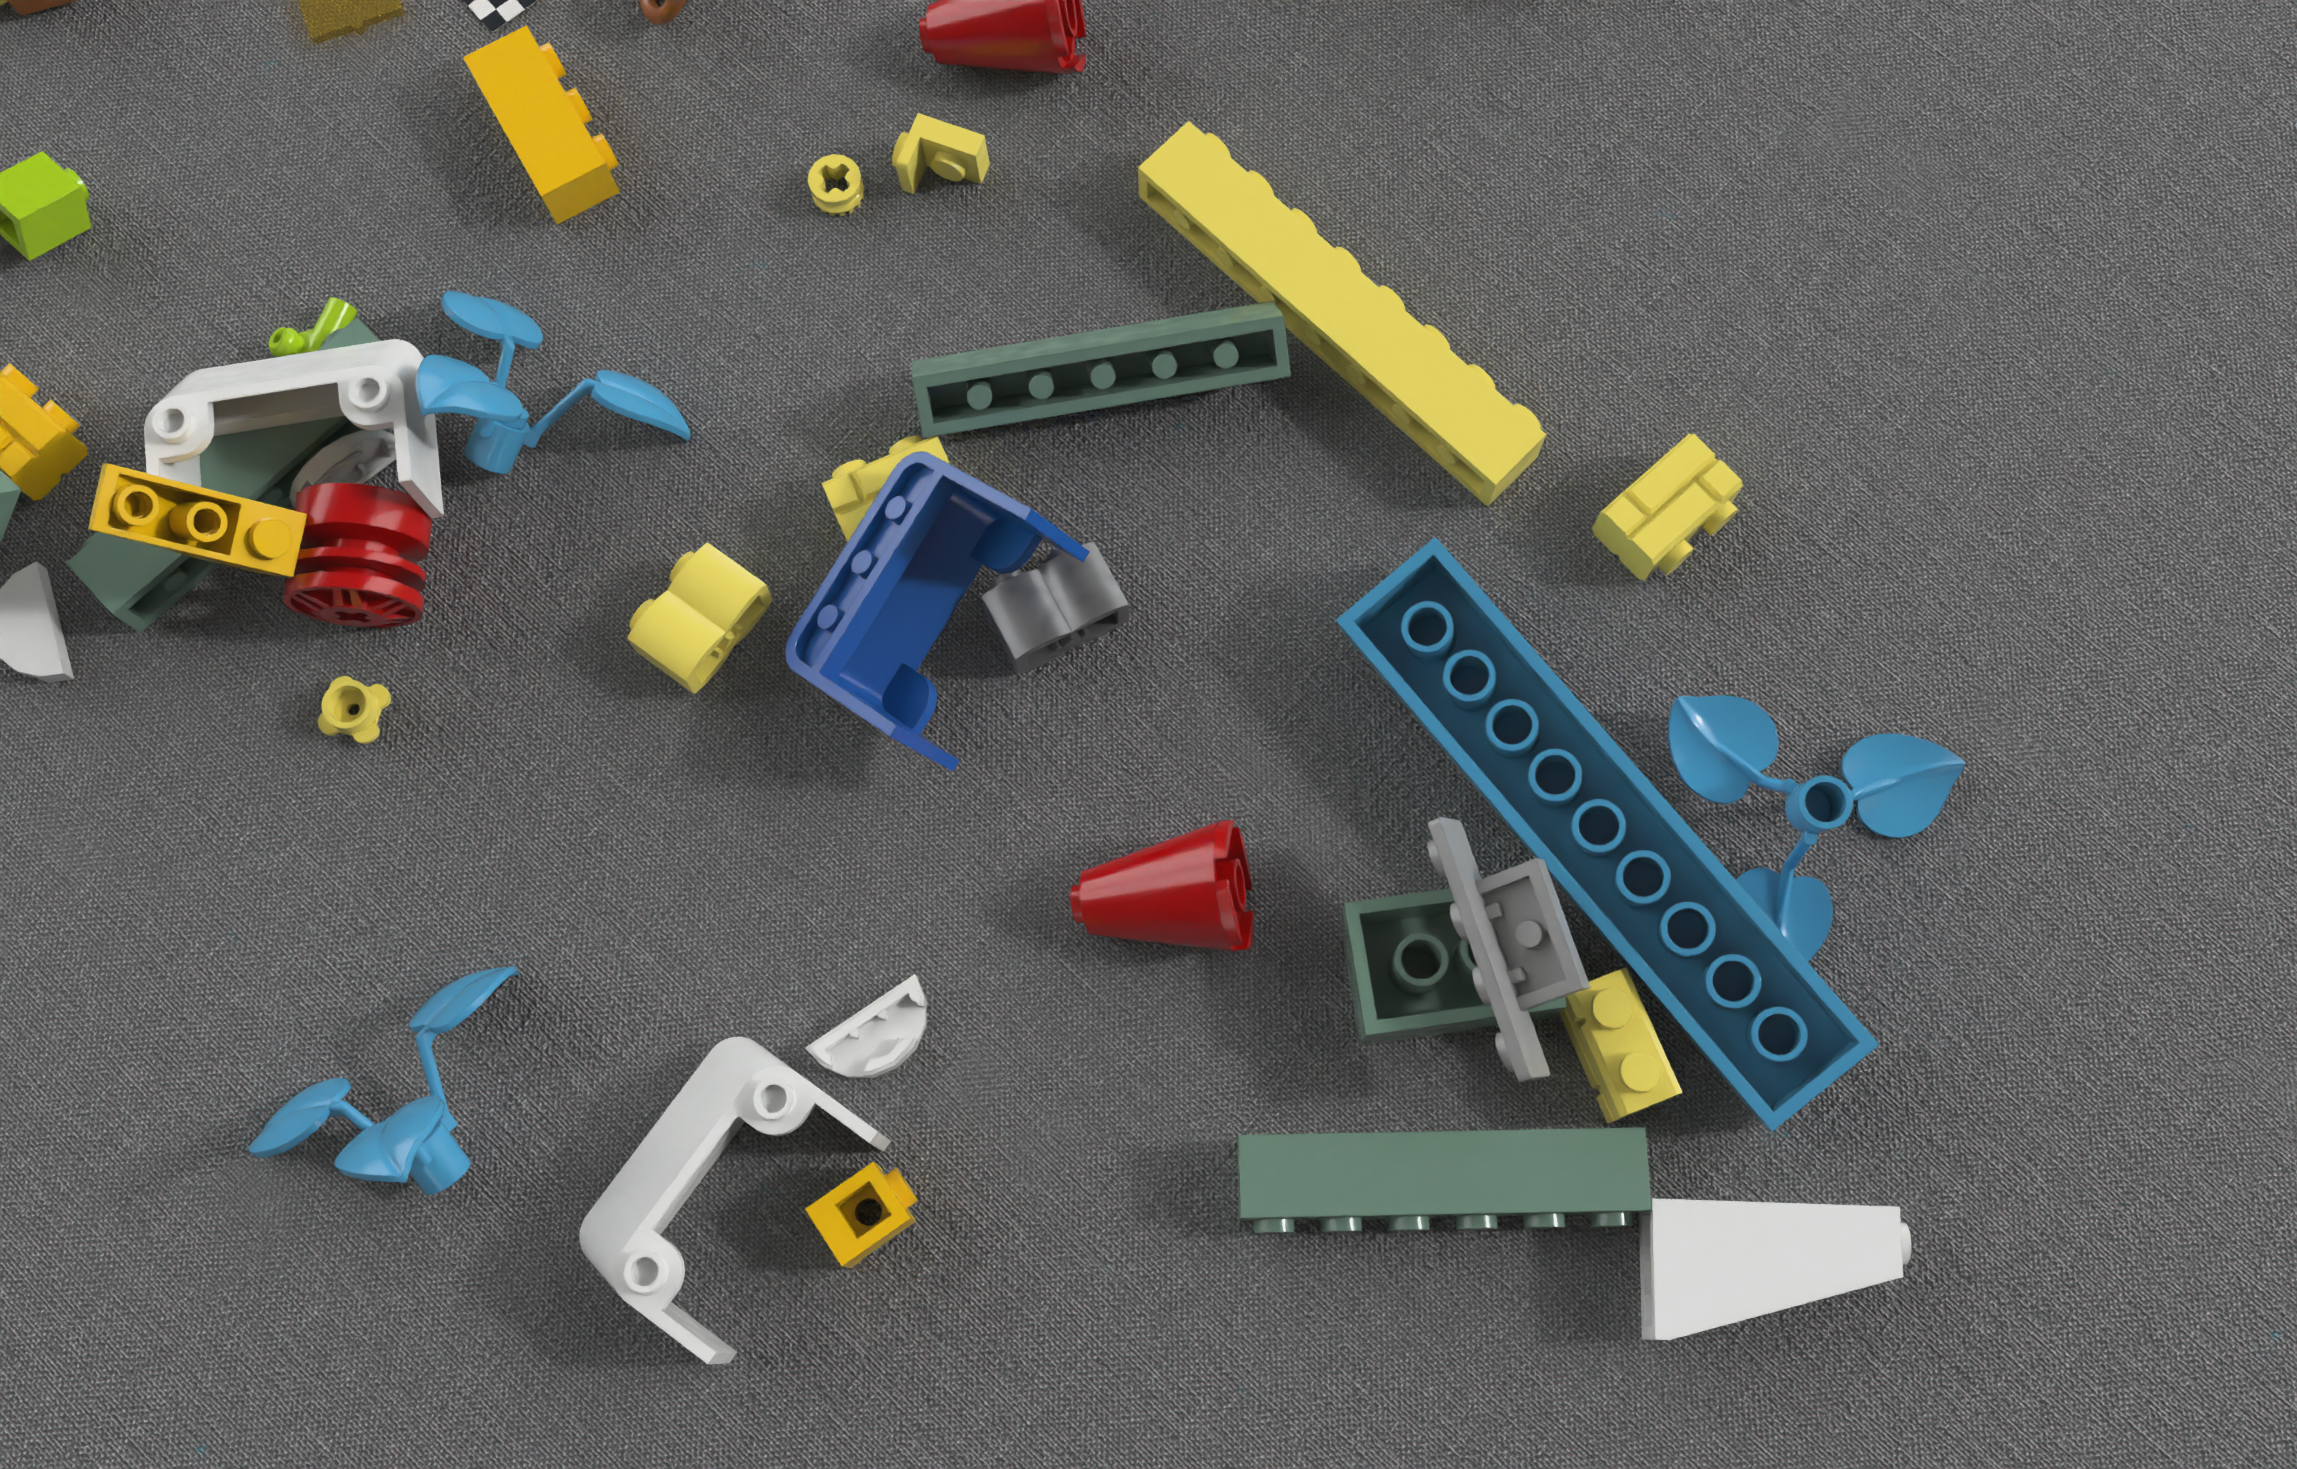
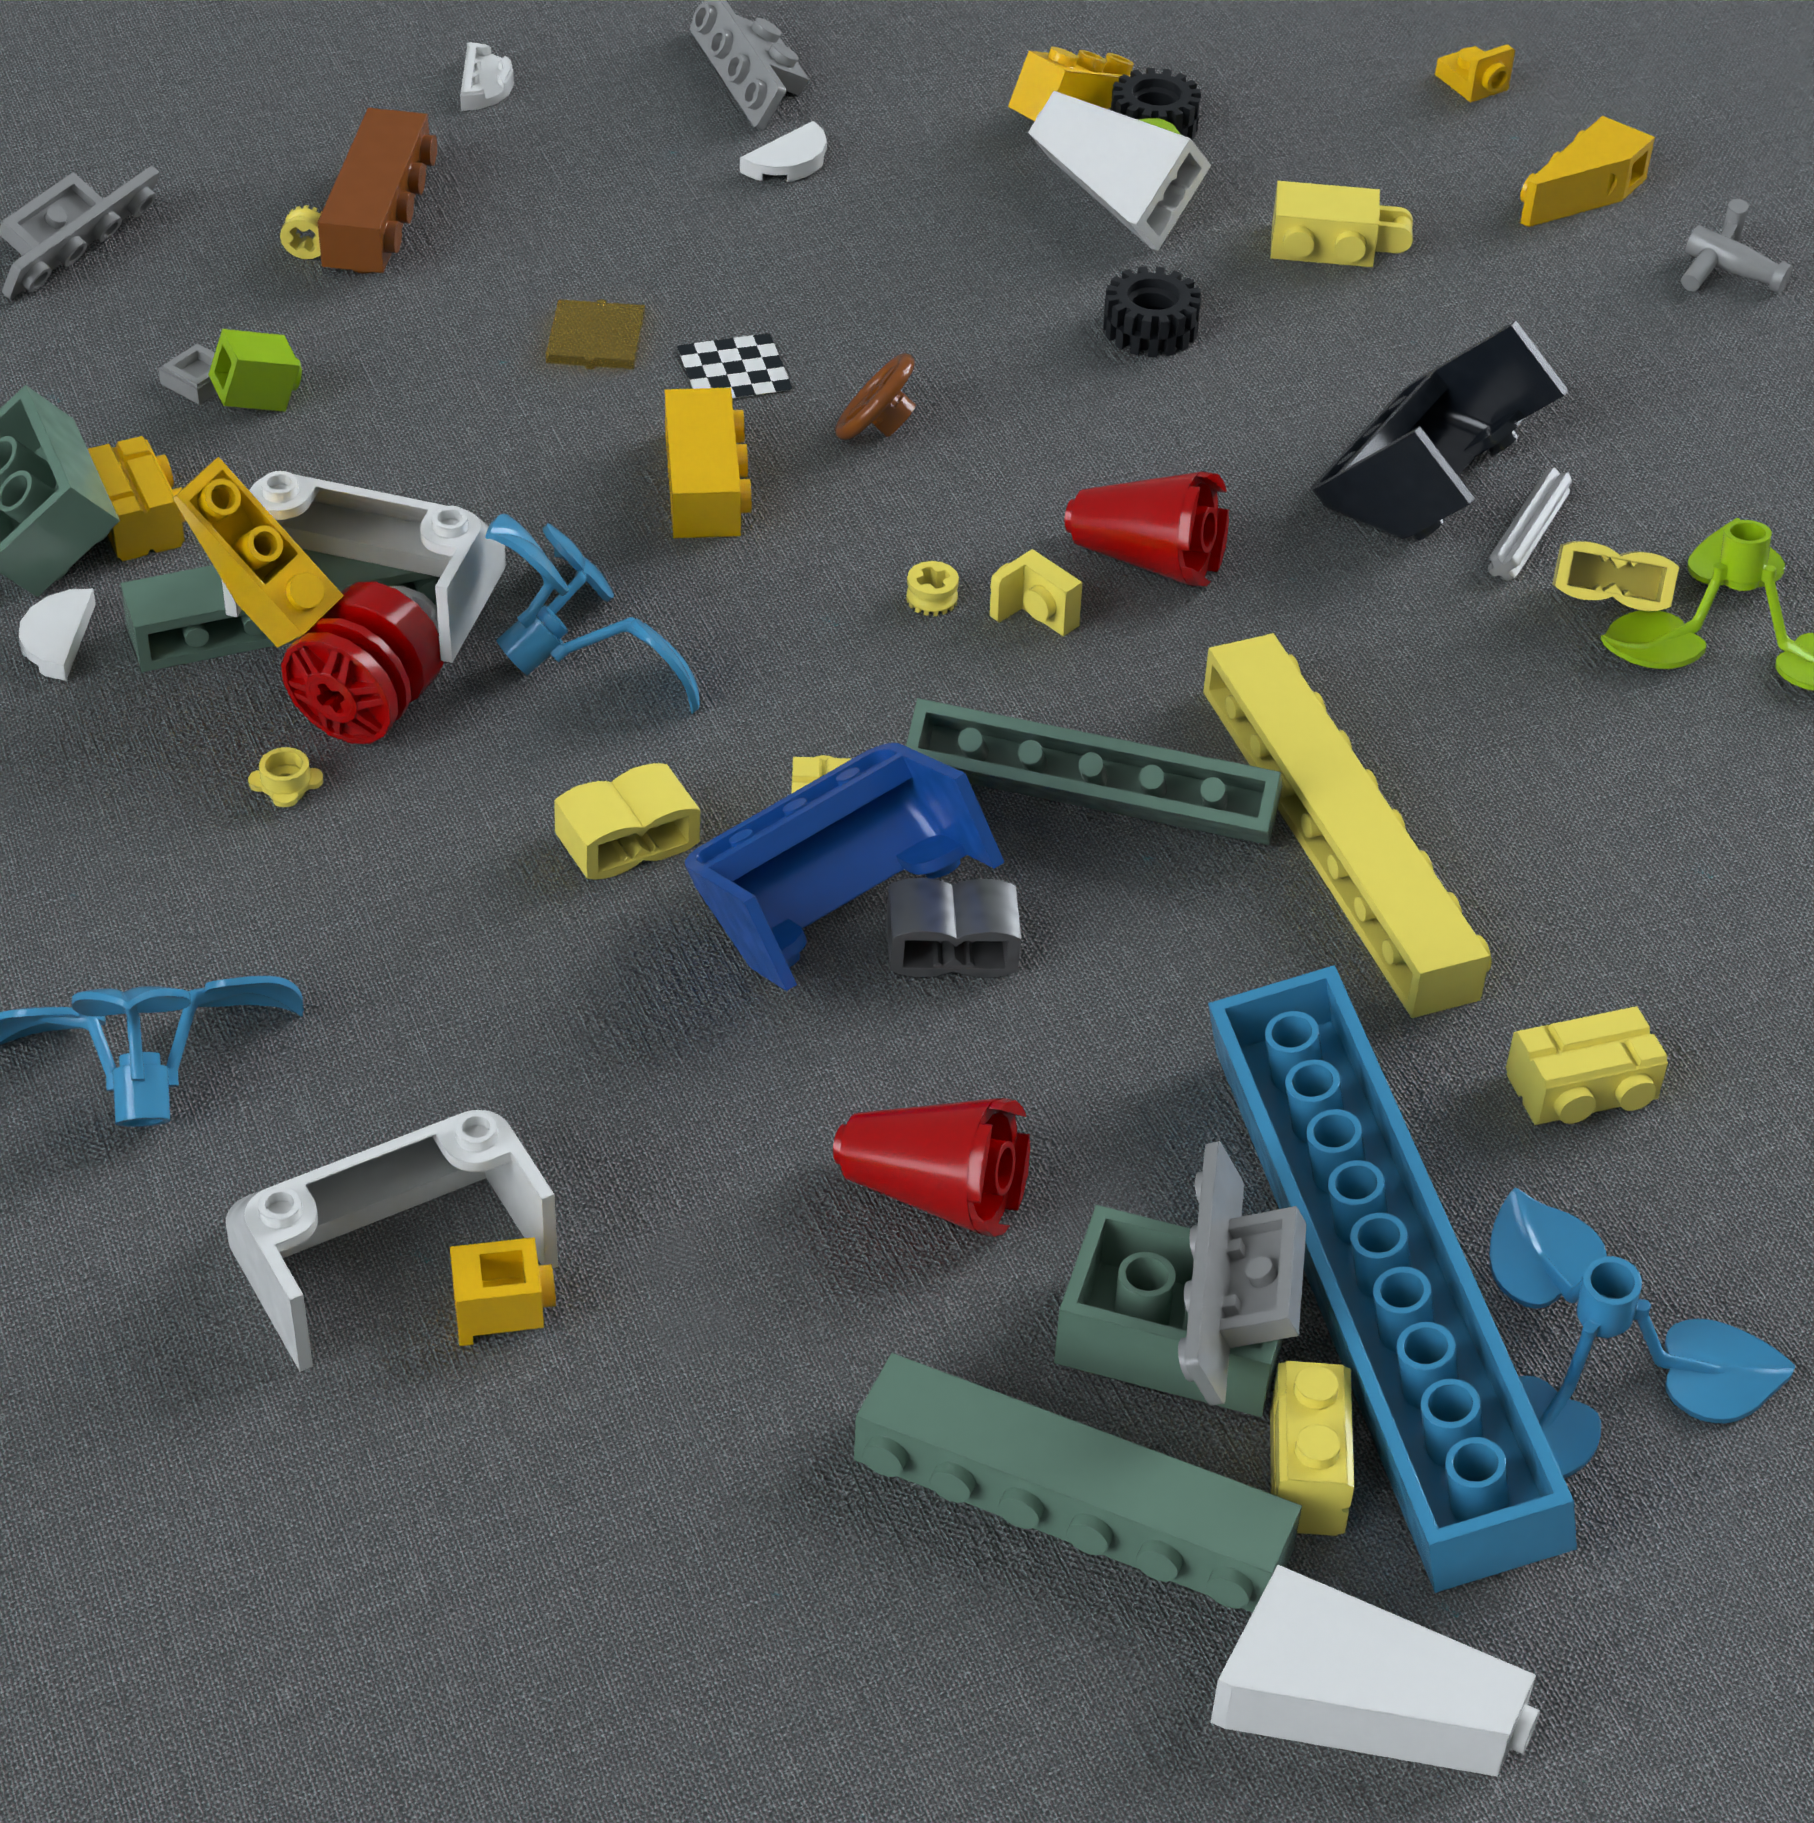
camera: 20 degrees right, 30 degrees down
(876, 1036) = (600, 1177): white tile -> none

